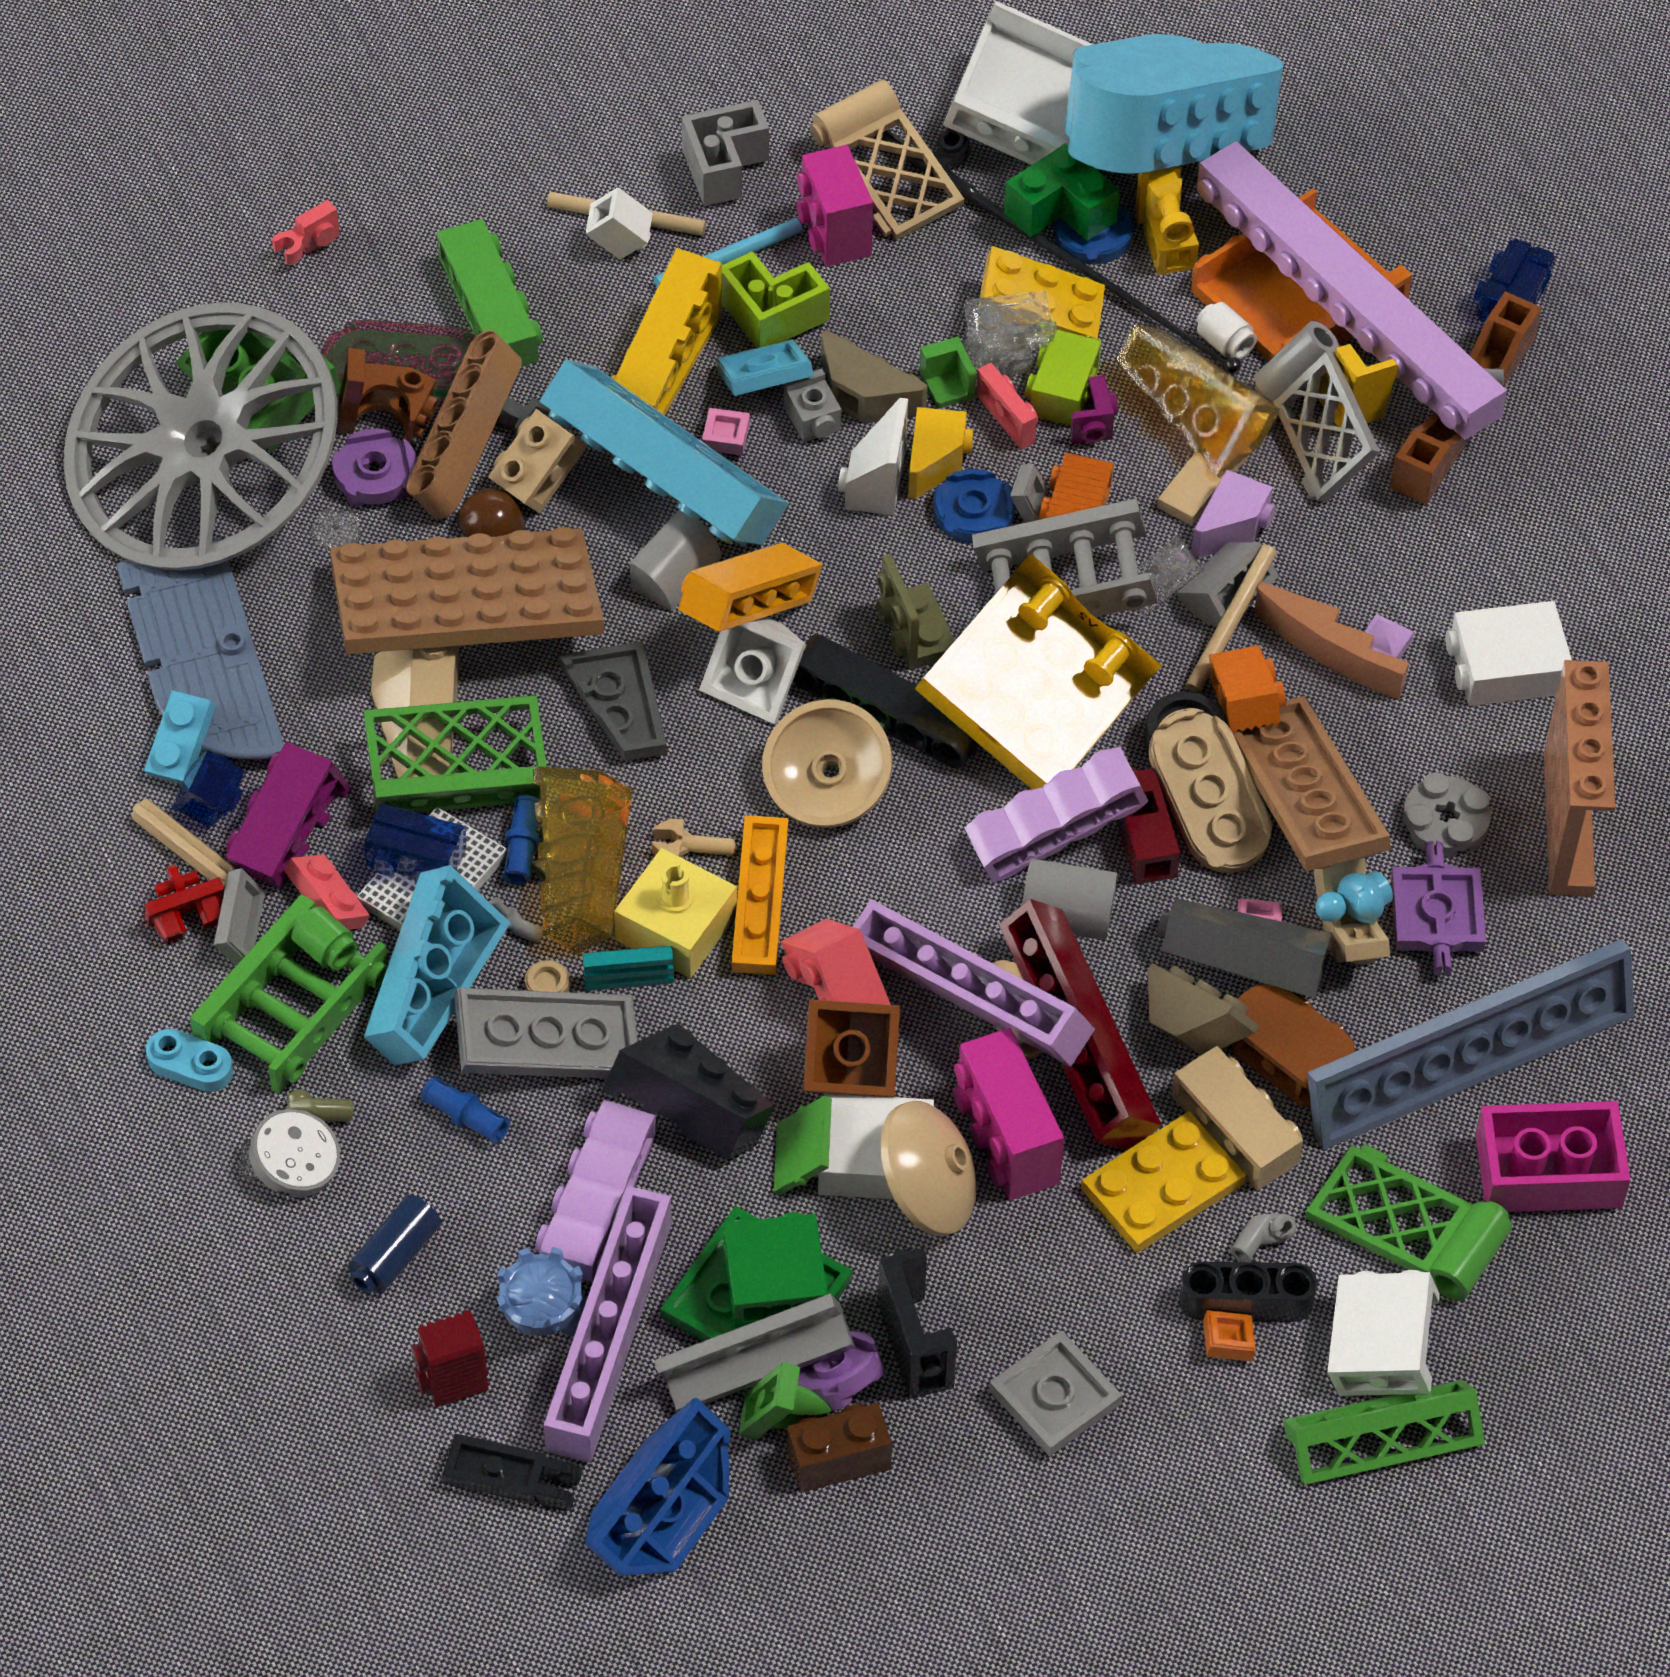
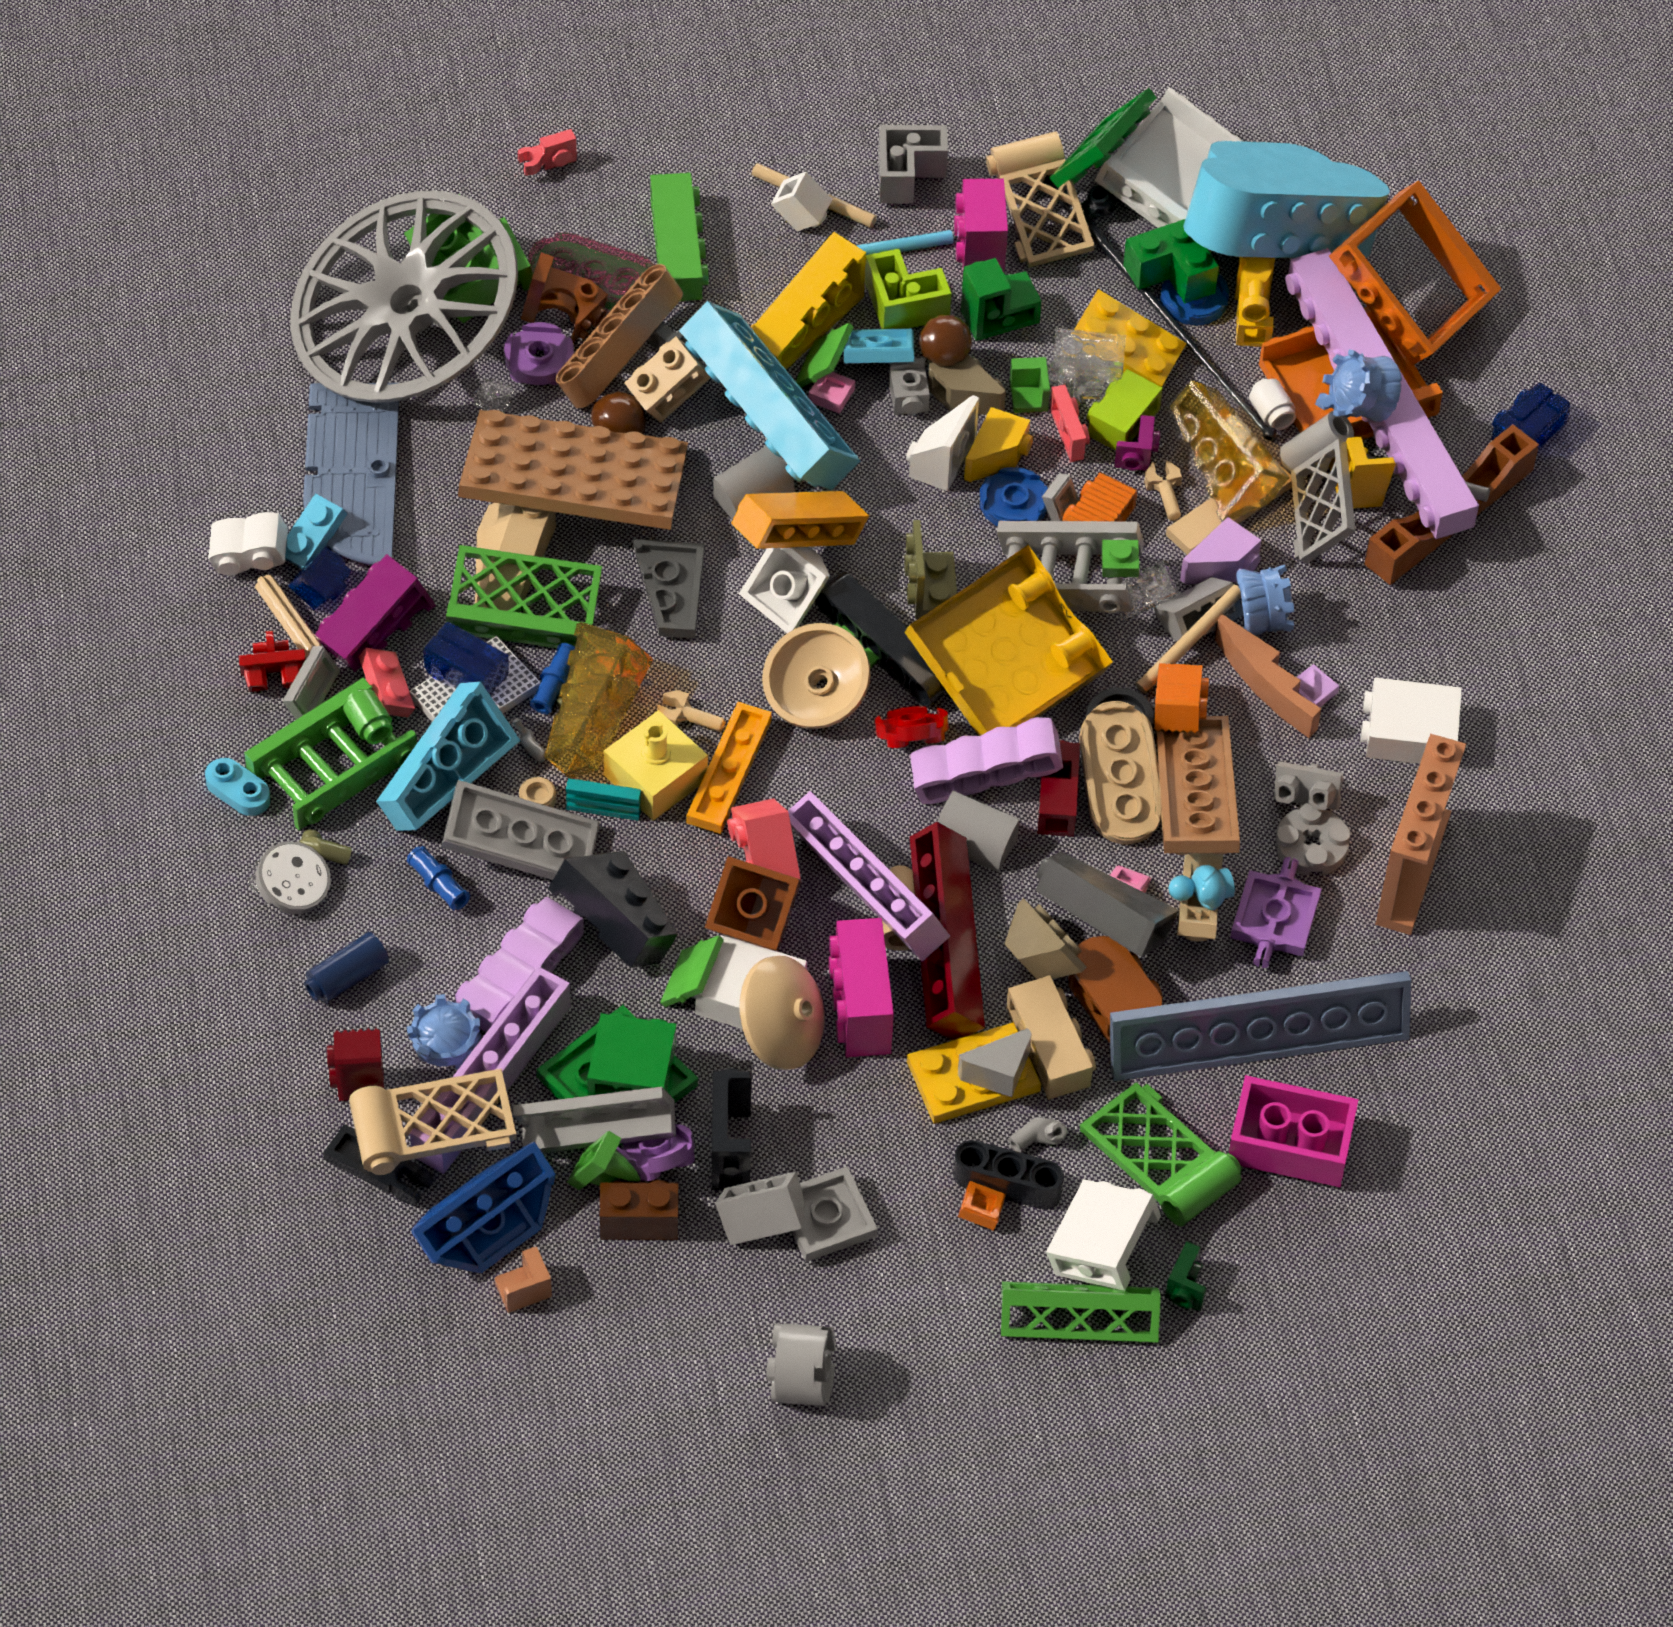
camera: 15 degrees right, 0 degrees up
(109, 768) = (248, 543): none -> white brick
(516, 1439) = (384, 1138): none -> tan piece
(705, 392) = (824, 355): none -> bright green piece
(734, 1569) = (525, 1284): none -> nougat panel
(842, 343) = (945, 340): none -> reddish brown hair
(879, 284) = (997, 301): none -> green brick
(939, 76) = (1104, 139): none -> green plate
(953, 793) = (912, 725): none -> red plate
(982, 1406) = (762, 1208): none -> light grey brick
(1094, 1581) = (802, 1364): none -> light grey brick
(1130, 544) = (1120, 558): none -> bright green plate
(1144, 440) = (1165, 487): none -> tan bar
(1194, 1166) = (997, 1064): none -> light grey slope
(1306, 552) = (1265, 600): none -> medium blue hair
(1335, 287) = (1362, 387): none -> medium blue hair
(1366, 116) = (1448, 249): none -> orange window
(1423, 753) = (1308, 785): none -> light grey hips
(1489, 1369) = (1182, 1281): none -> dark green bracket

